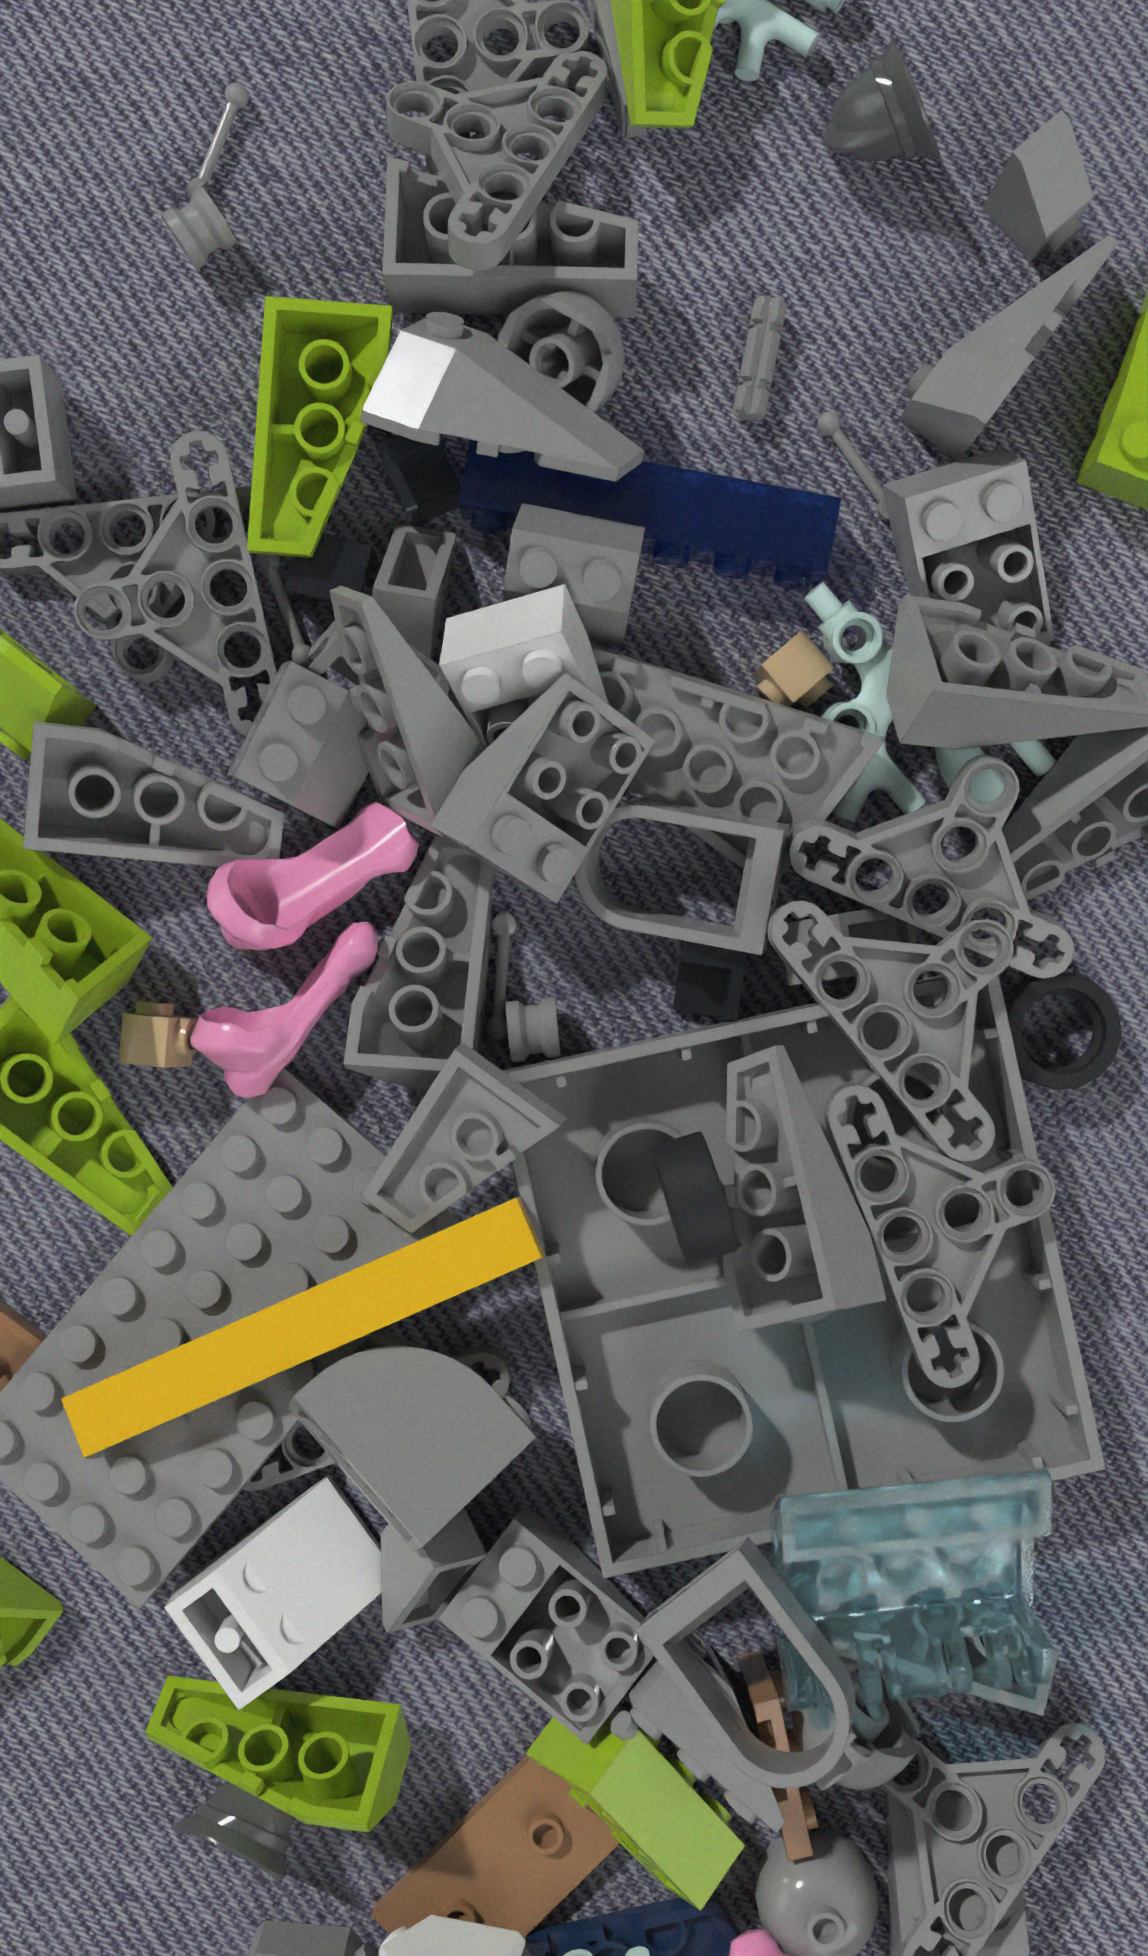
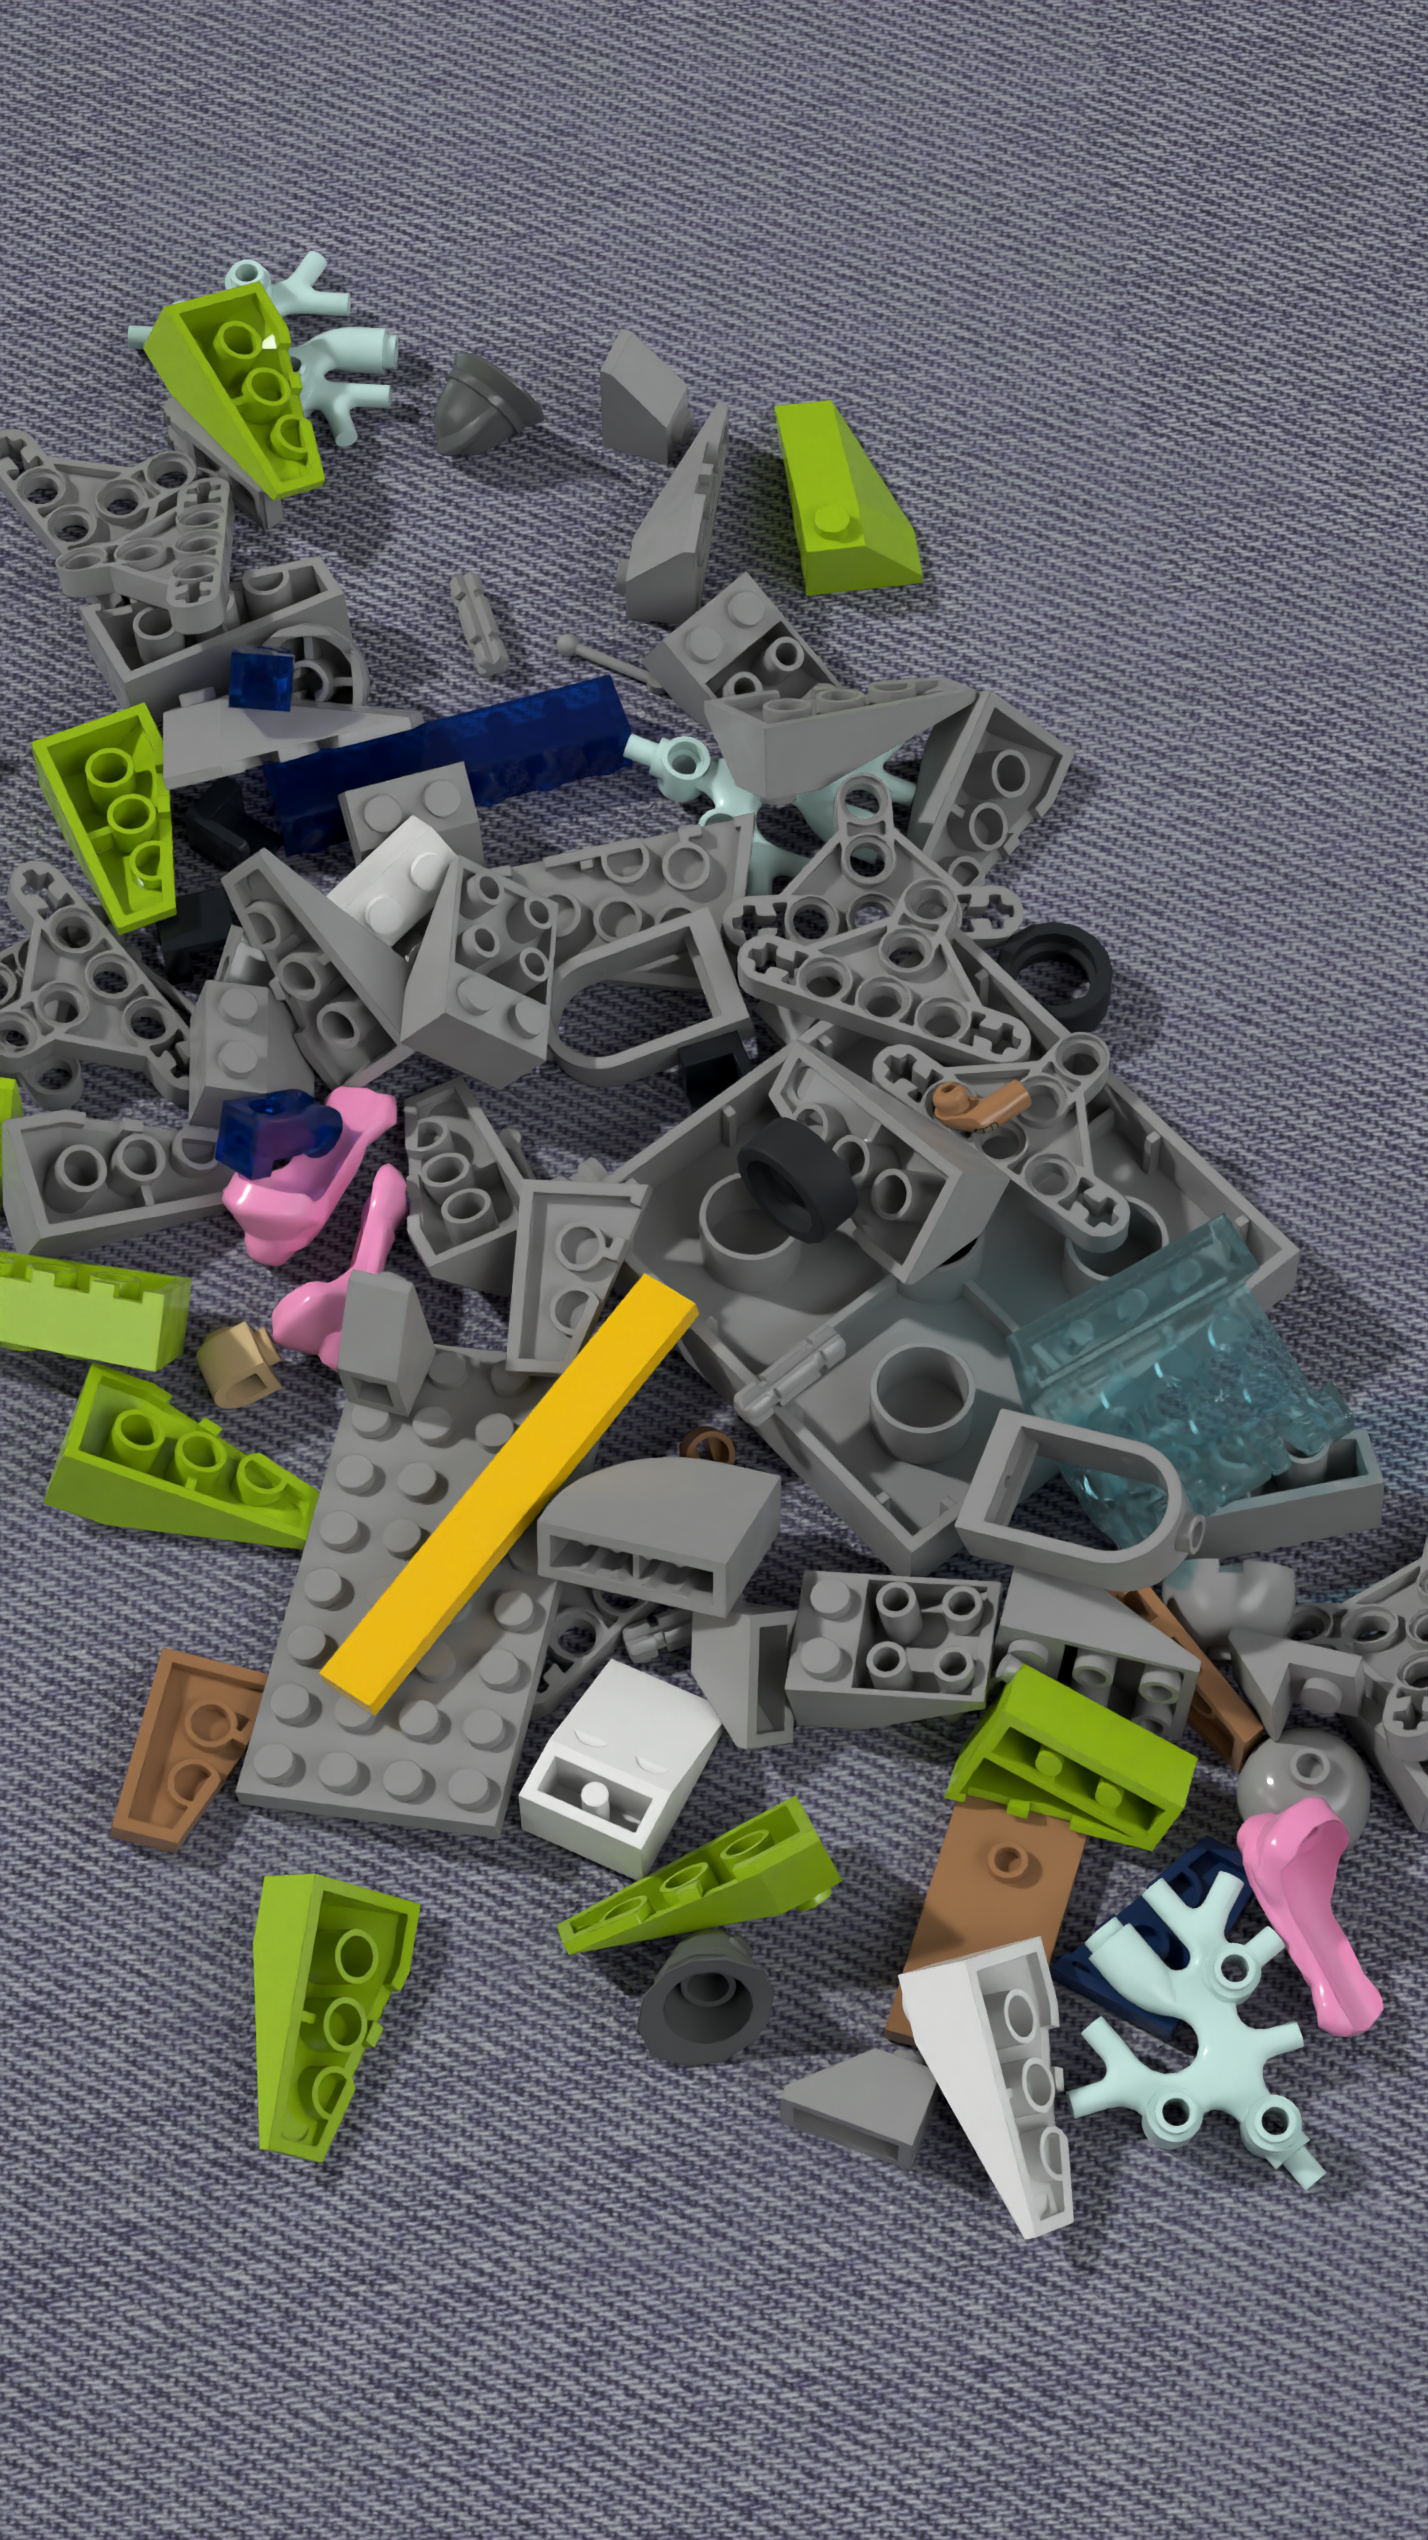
camera: 30 degrees left, 30 degrees down
(266, 1122) = (383, 1342): none -> light grey slope
(285, 842) = (273, 1128): none -> clear blue leg
(498, 351) = (261, 678): none -> clear blue leg
(505, 1329) = (716, 1444): none -> medium nougat hinge
(588, 1364) = (789, 1375): none -> light grey axle
(794, 673) = (649, 815): tan plate -> none
(843, 1841) = (1286, 1672): none -> light grey slope
(897, 1210) = (977, 1114): none -> medium nougat arm

